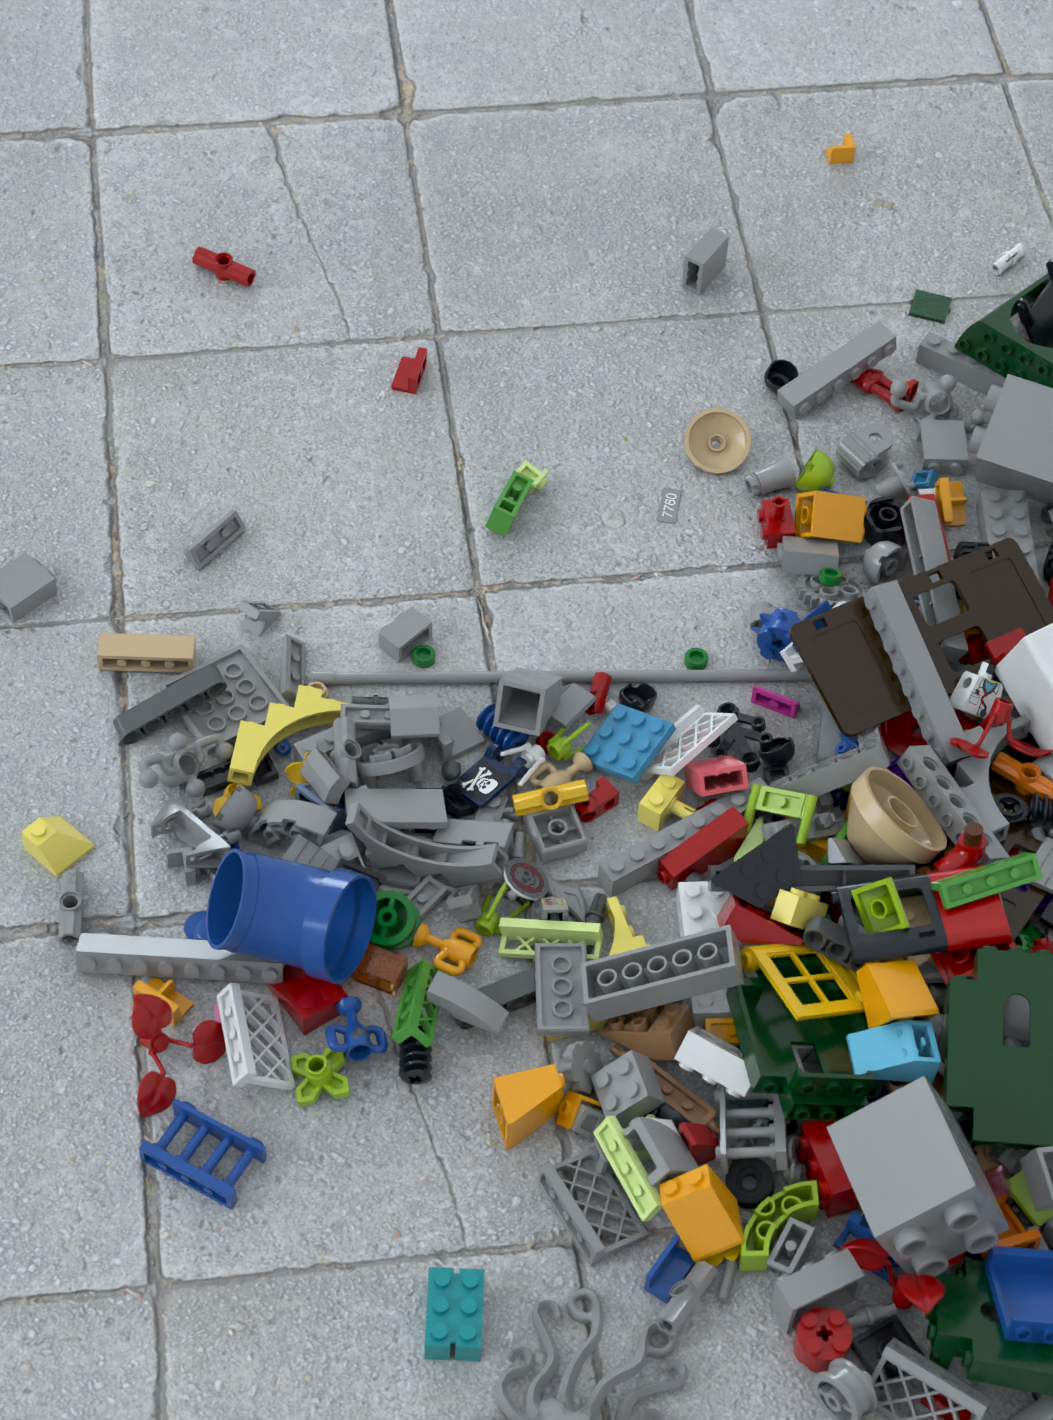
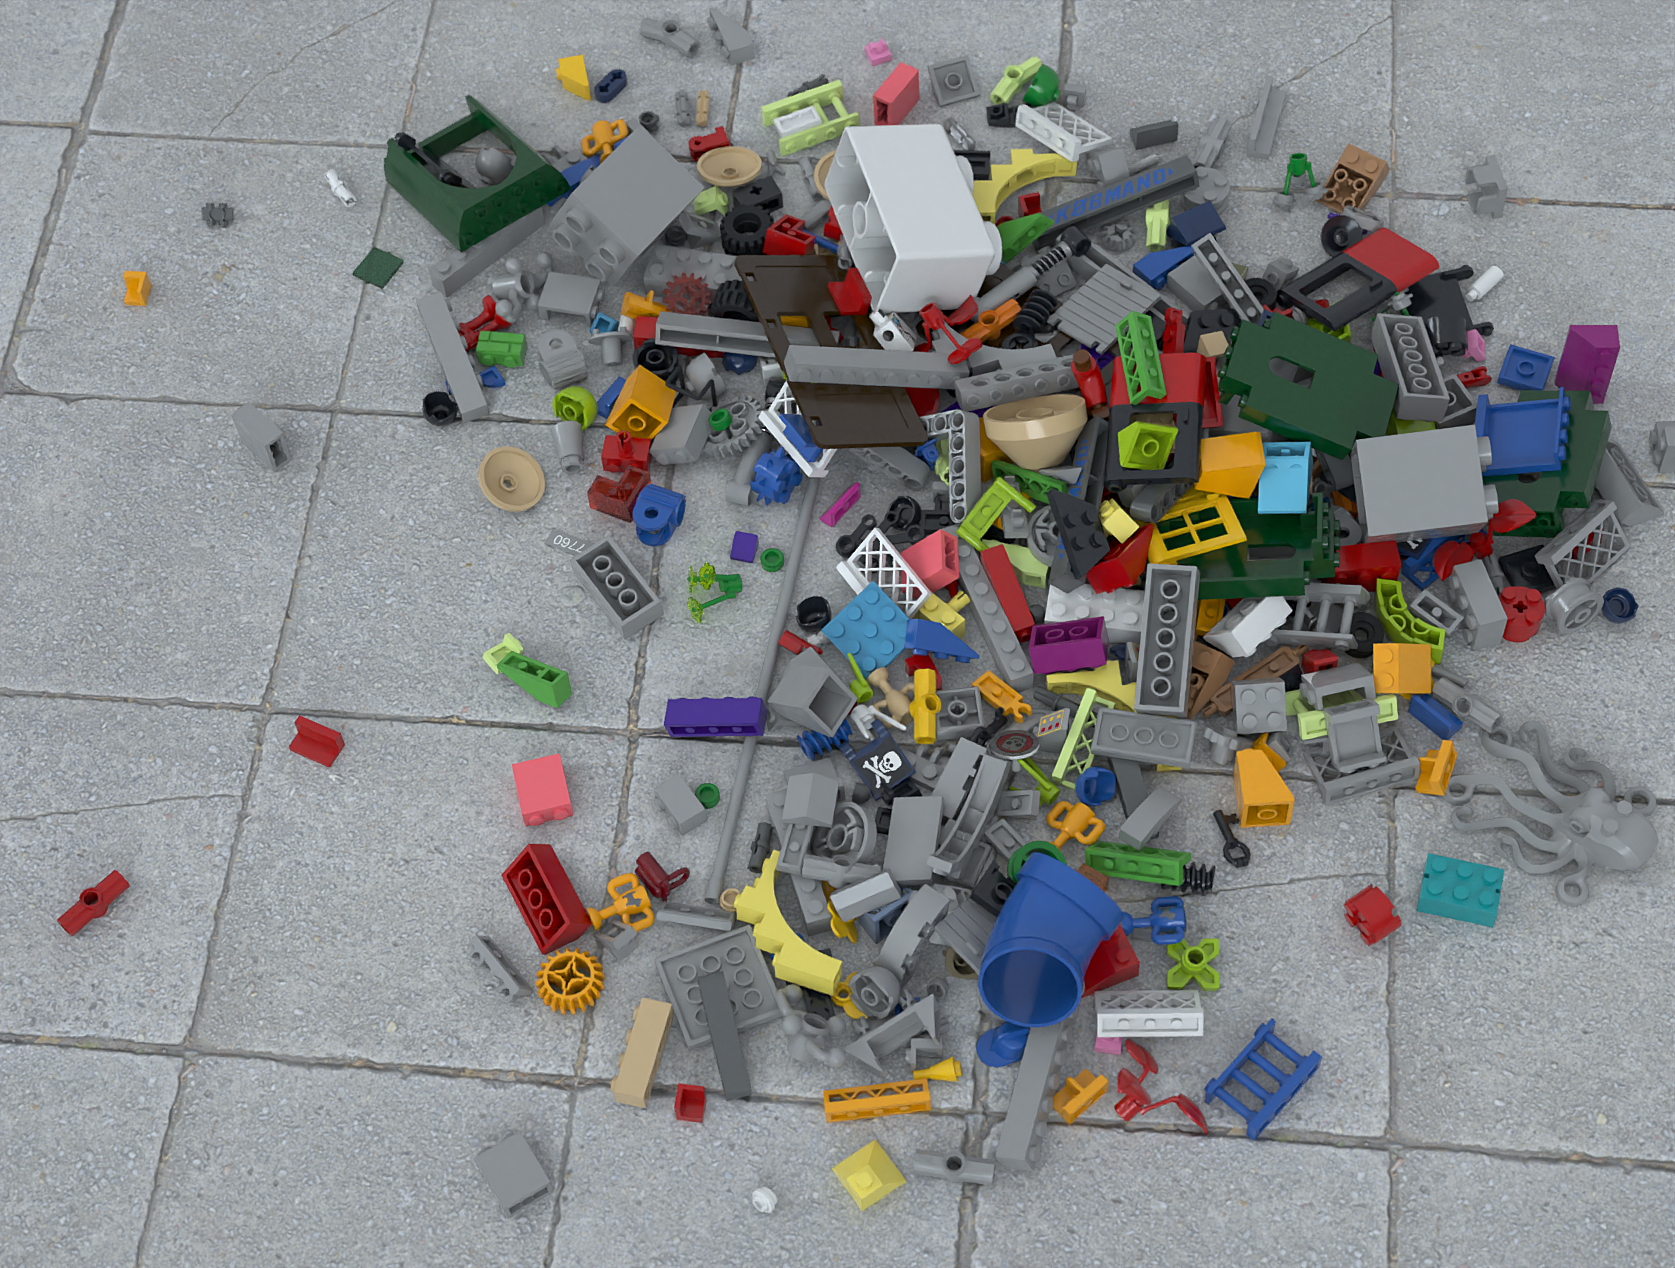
camera: 70 degrees left, 5 degrees up
(20, 768) = (764, 1199): none -> white plate
(104, 696) = (690, 1103): none -> red panel
(124, 838) = (877, 1105): none -> light orange fence
(170, 887) = (945, 1071): none -> yellow cone
(196, 586) = (554, 973): none -> light orange gear
(290, 558) = (546, 898): none -> red slope
(295, 616) = (626, 904): none -> light orange piece
(325, 627) = (656, 878): none -> dark red piece
(397, 533) = (542, 790): none -> coral brick
(402, 1226) = (1371, 914): none -> red brick
(468, 1096) = (1231, 842): none -> black piece
(498, 637) = (715, 717): none -> dark purple brick
(498, 957) = (1095, 786): none -> blue hair
(536, 856) = (985, 733): none -> black piece
(586, 866) = (1001, 695): none -> light orange plate
(599, 1278) = (1437, 769): none -> light orange panel
(606, 1177) = (1354, 735): none -> light grey panel
(623, 541) = (617, 587): none -> light grey brick
(625, 789) = (933, 637): none -> blue slope
(651, 905) = (1069, 645): none -> magenta brick
(655, 626) = (729, 584): none -> plant
(702, 634) = (744, 547): none -> dark purple slope
(720, 560) = (656, 510): none -> blue piece
(727, 528) = (618, 497): none -> clear red brick
(834, 410) = (492, 378): none -> blue tile
(846, 551) = (682, 391): none -> black piece
(865, 406) = (501, 349): none -> bright green brick
(944, 183) = (222, 214): none -> dark grey piece
(968, 514) = (676, 298): none -> clear red gear

